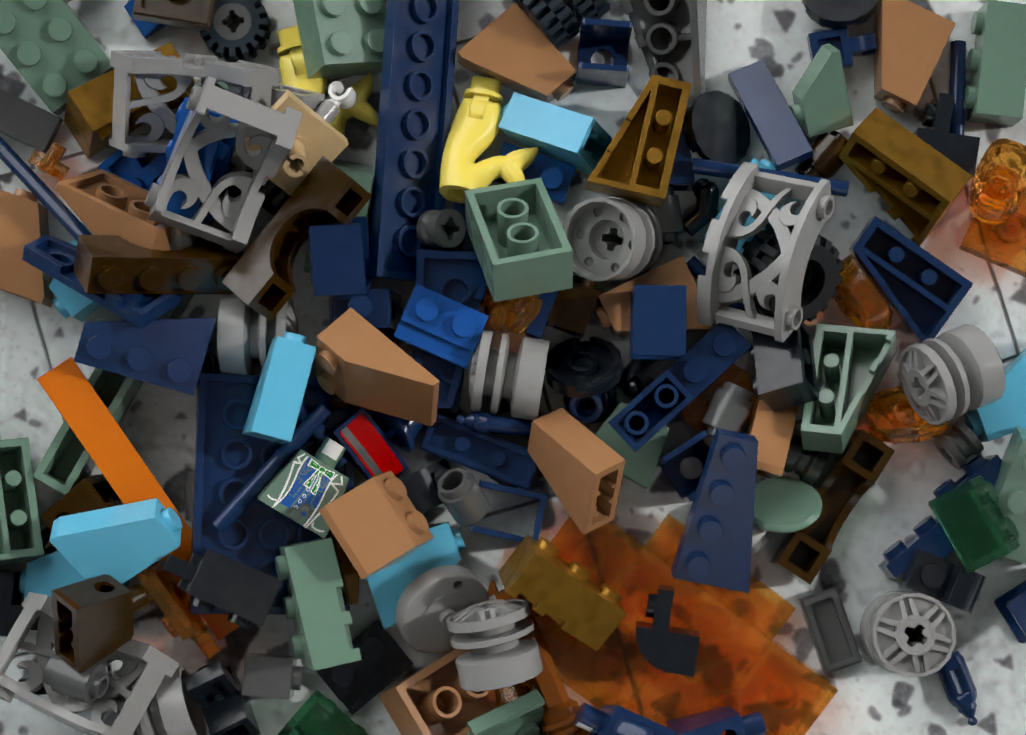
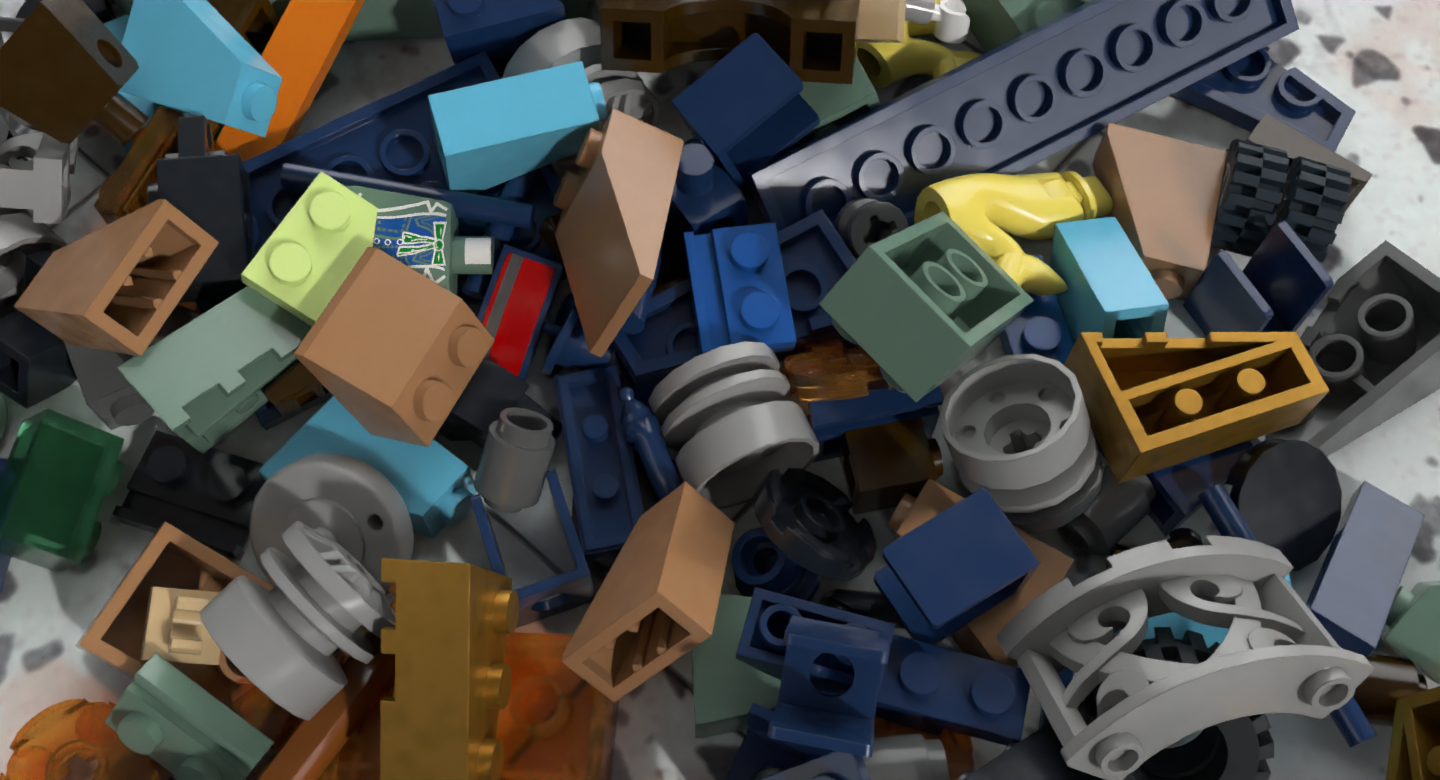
camera: 60 degrees right, 20 degrees down
(259, 649) = (119, 280): none -> medium nougat slope
(297, 536) = (313, 249): none -> yellowish green wing
(453, 704) = (176, 627): none -> tan tile
(685, 423) = (824, 720): none -> dark blue piece

